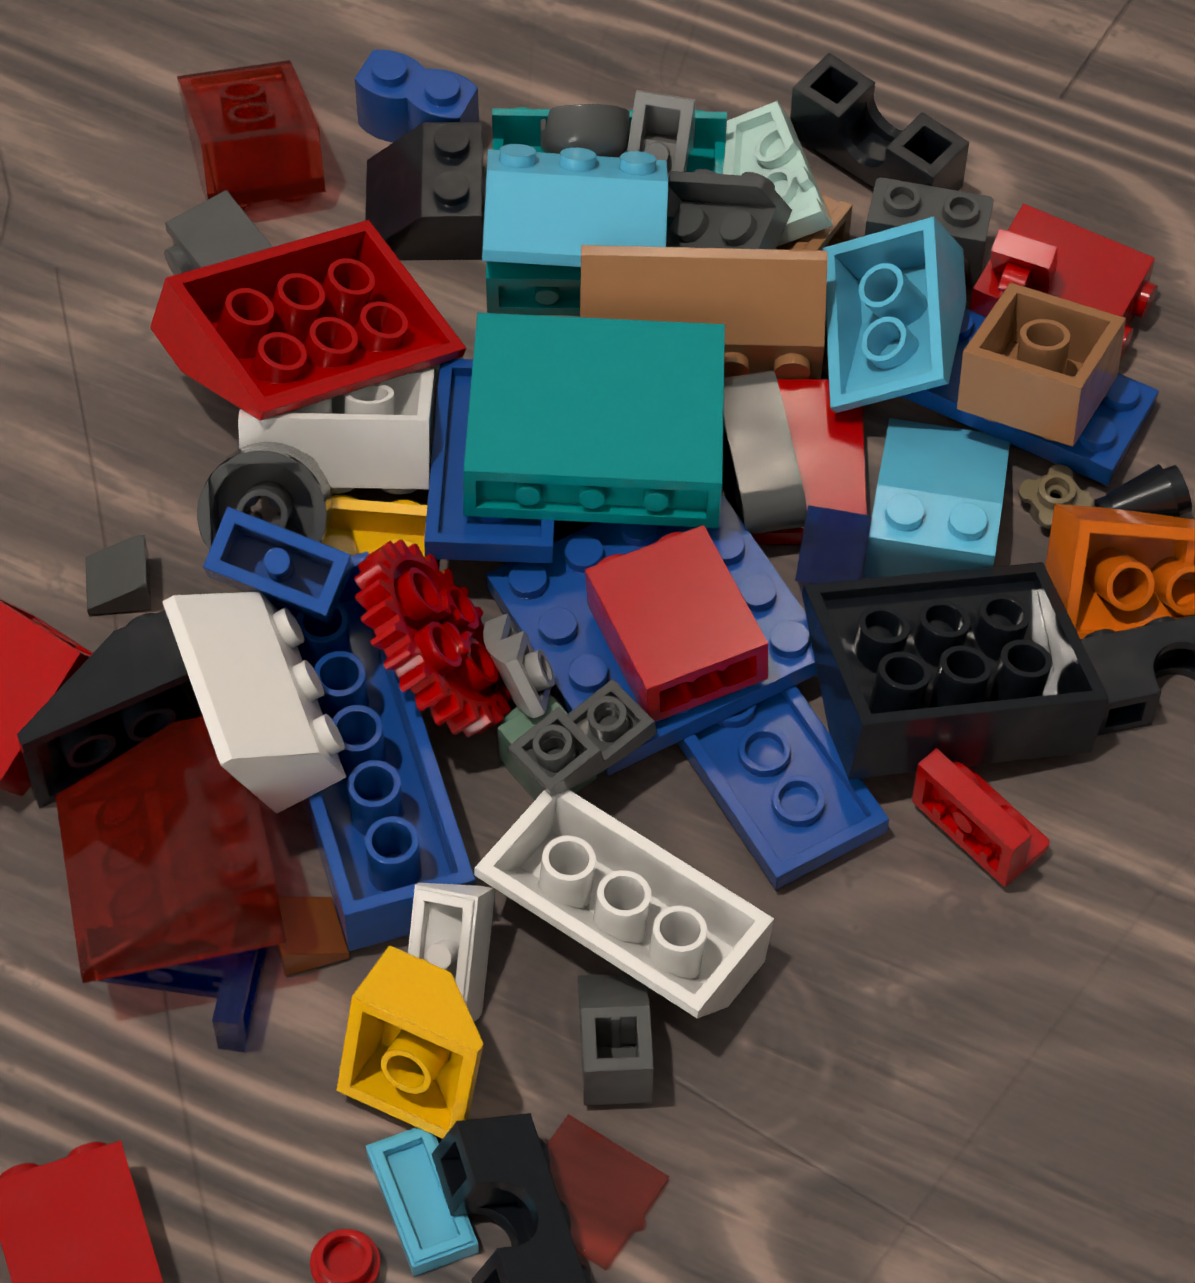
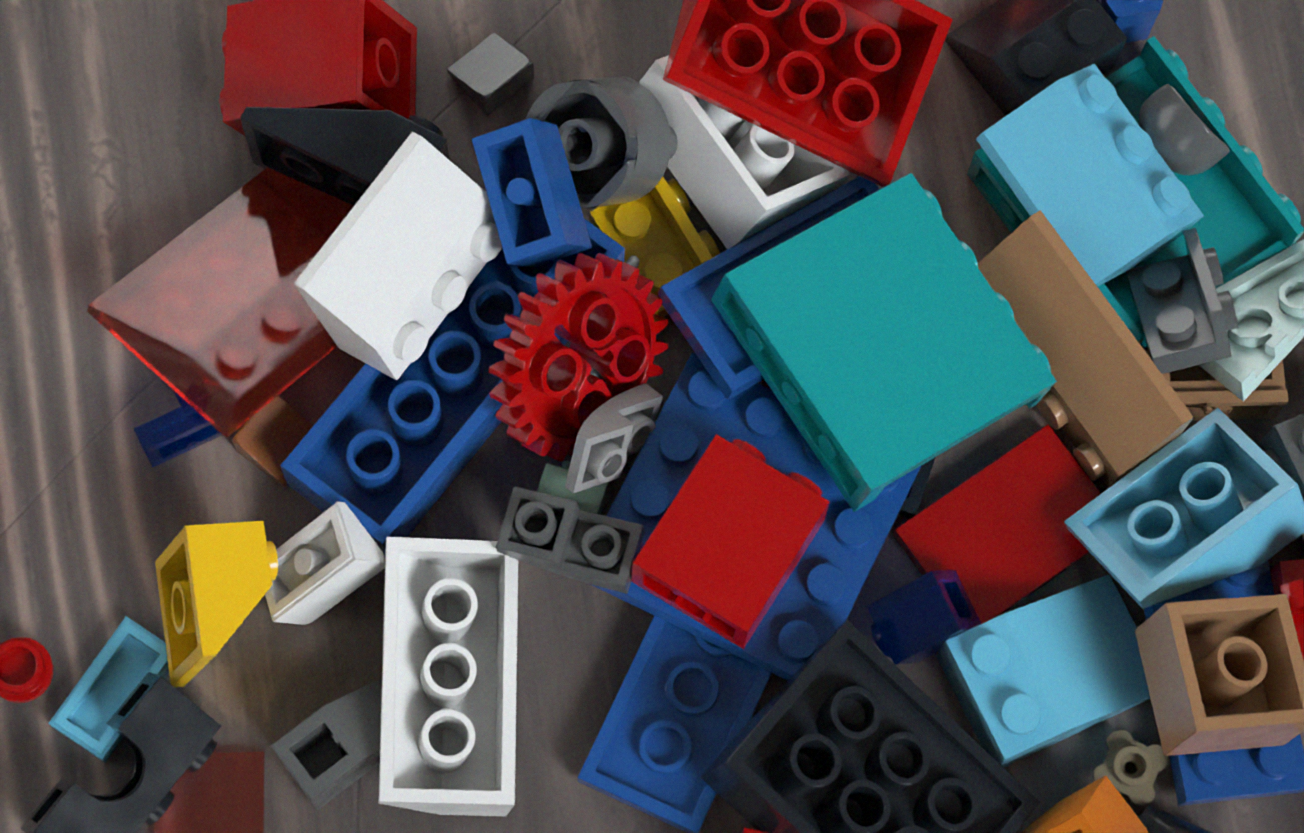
camera: 50 degrees right, 15 degrees up
(665, 129) = (1229, 195): light grey slope -> none
(761, 455) = (971, 491): beam -> none

